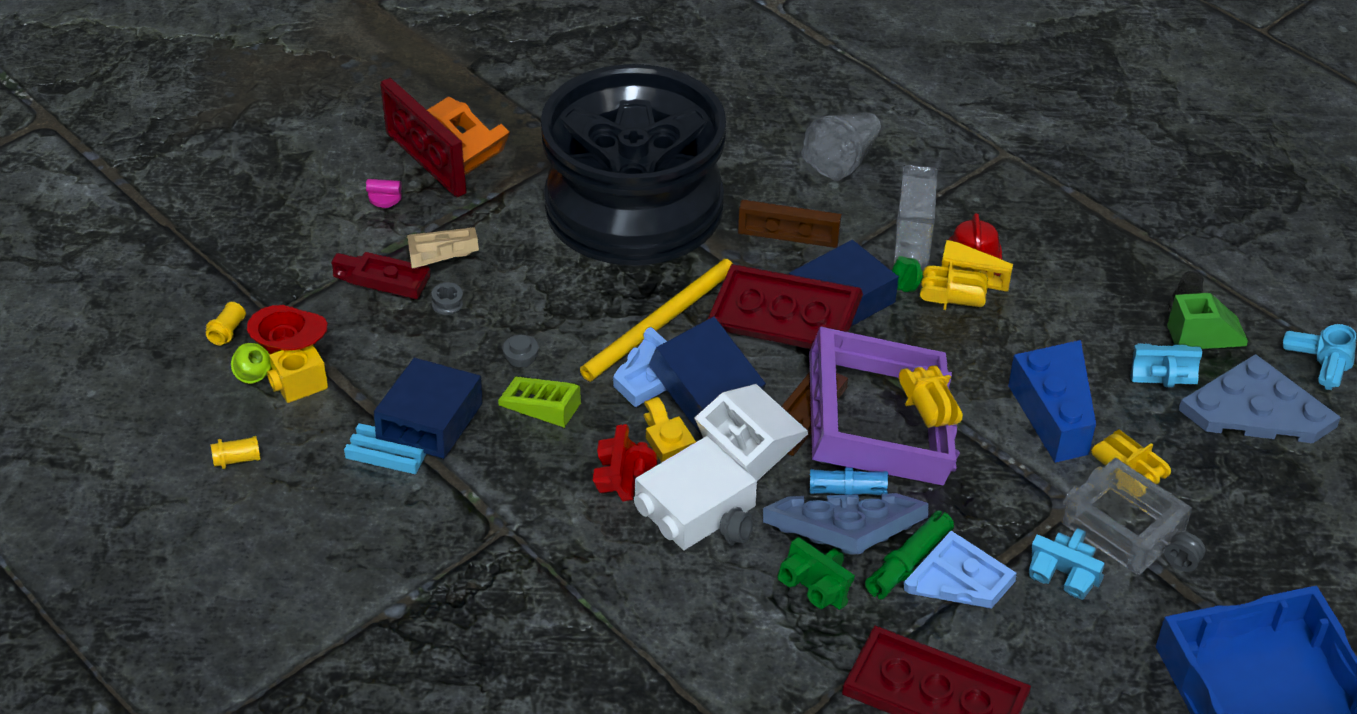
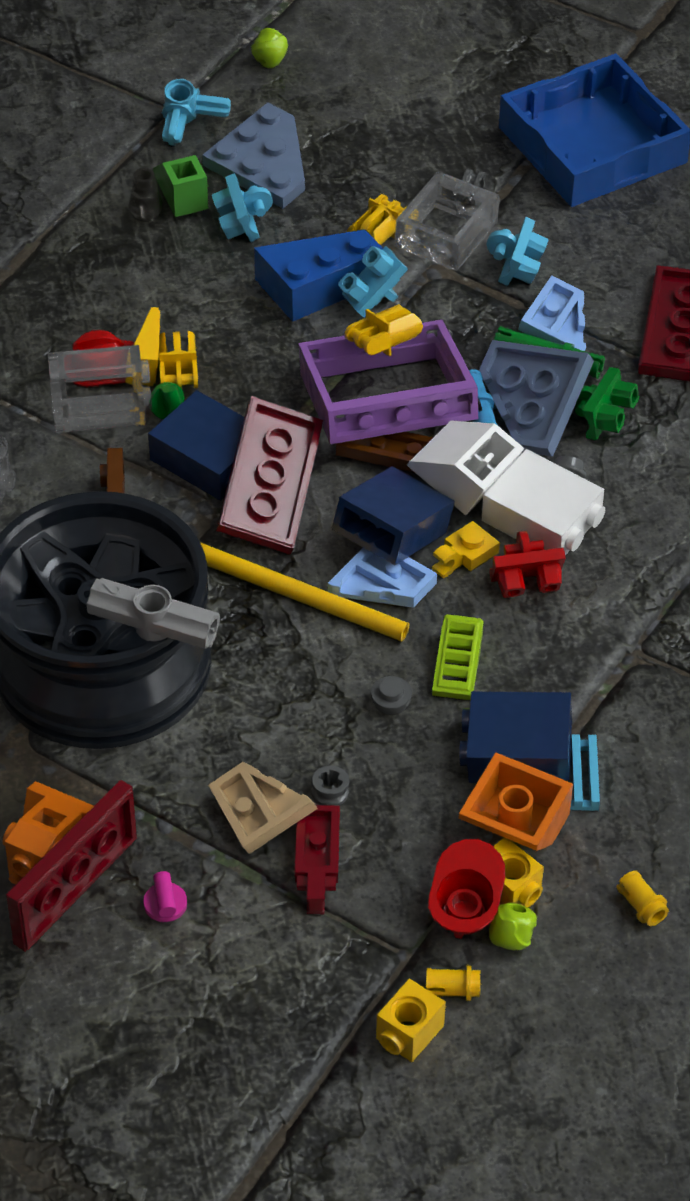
camera: 105 degrees left, 5 degrees up
(204, 289) = (414, 1005): none -> yellow brick
(347, 378) = (519, 803): none -> orange slope
(564, 127) = (153, 613): none -> light grey piece
(1029, 425) = (375, 281): none -> medium azure hips

